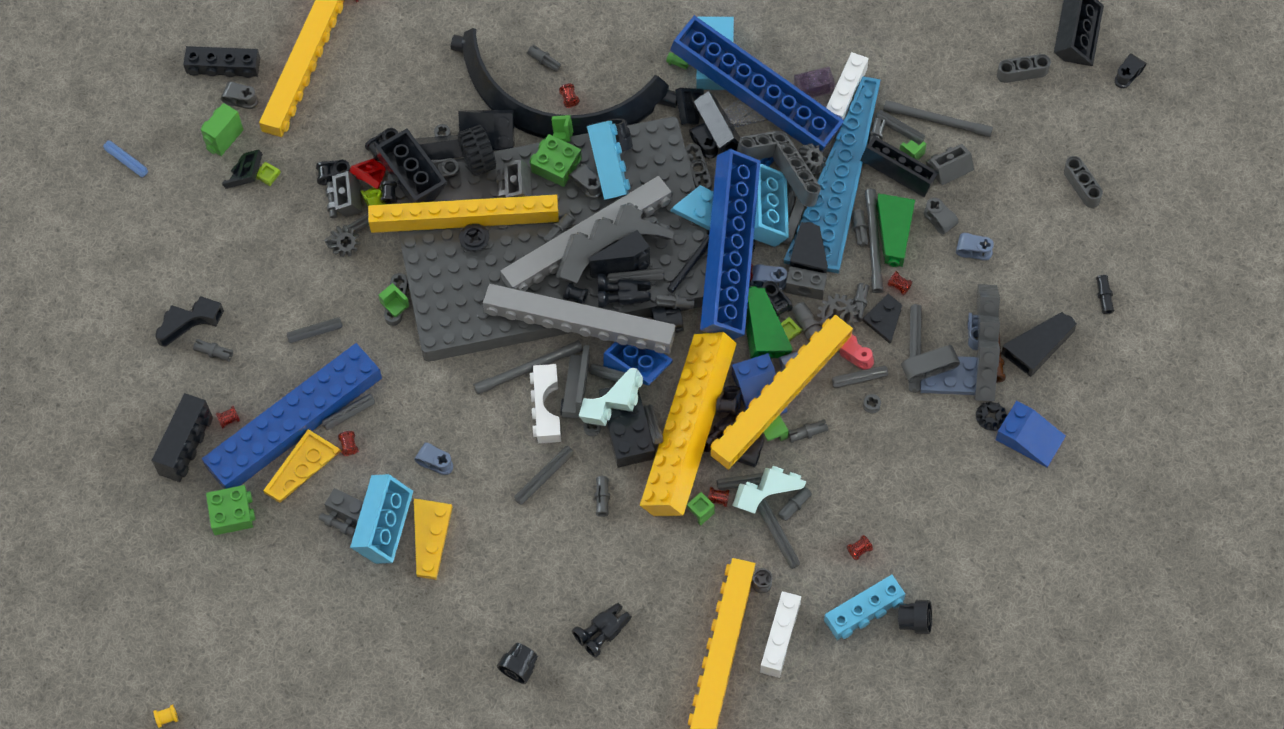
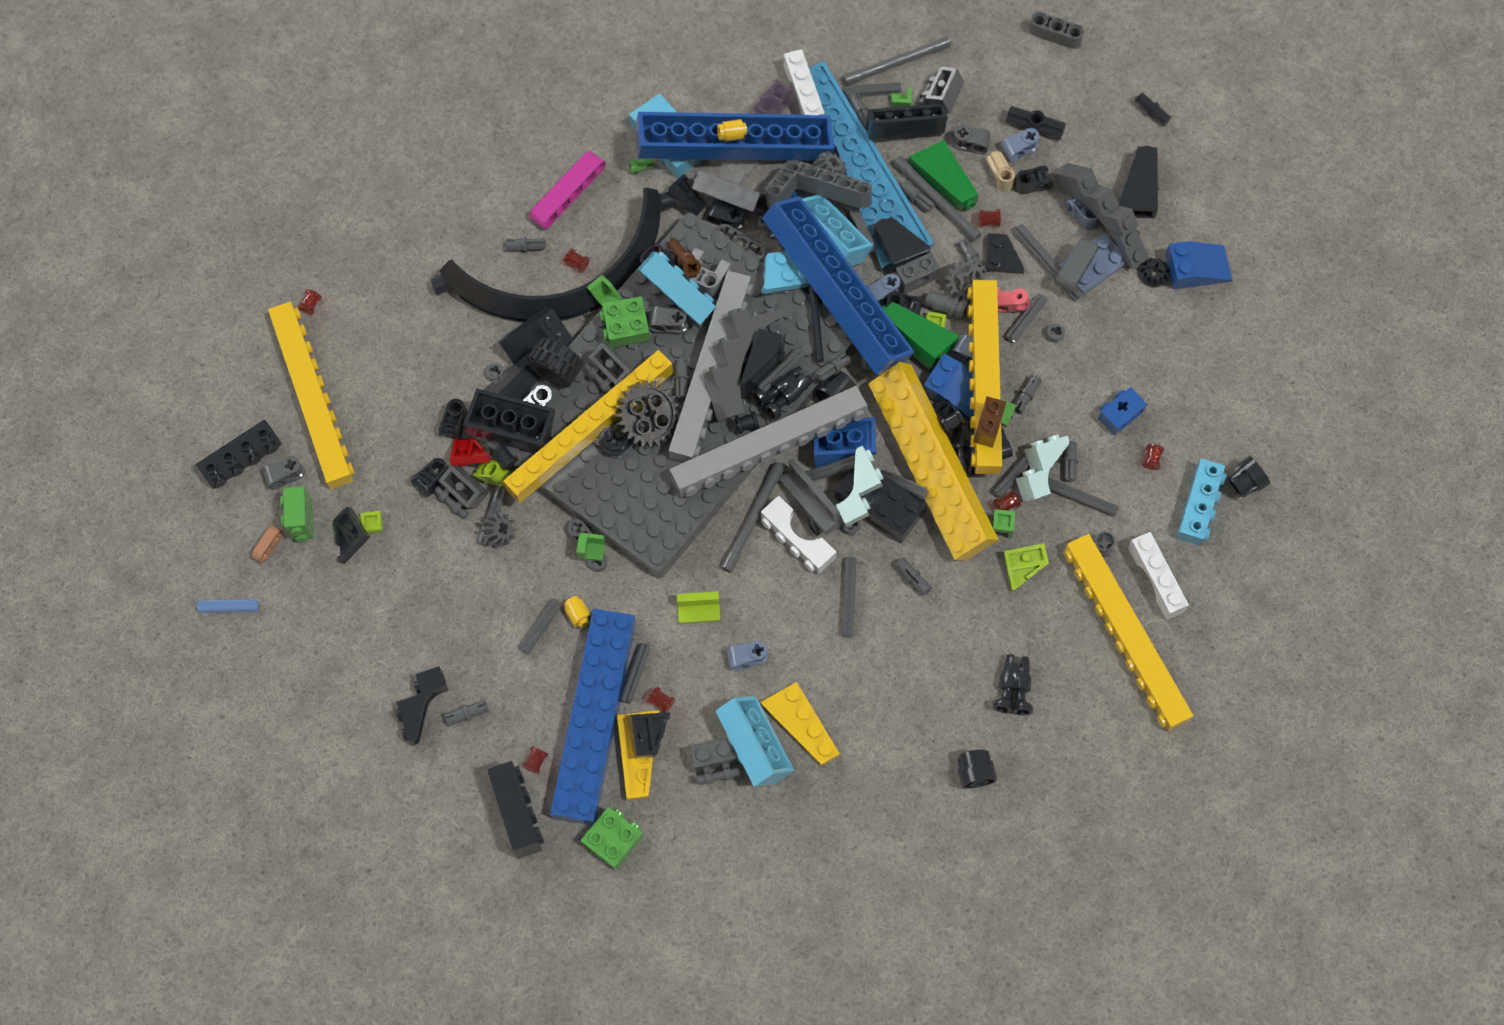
camera: 40 degrees left, 5 degrees up
(185, 136) = (267, 544): none -> nougat beam
(316, 456) = (647, 733): none -> black wing
(346, 337) = (577, 612): none -> yellow brick
(432, 400) = (698, 607): none -> lime panel
(492, 228) = (663, 408): none -> black gear
(608, 40) = (567, 190): none -> dark pink beam
(633, 144) = (686, 260): none -> reddish brown pin
(640, 155) = (706, 276): none -> light grey piece
(691, 549) = (1024, 563): none -> lime wing
(746, 422) = (989, 421): none -> reddish brown brick
(751, 77) = (731, 130): none -> yellow brick
(875, 502) = (1118, 420): none -> blue brick
(941, 255) = (1001, 170): none -> tan piece
(960, 279) = (1035, 178): none -> black piece
(996, 230) = (1025, 119): none -> black piece

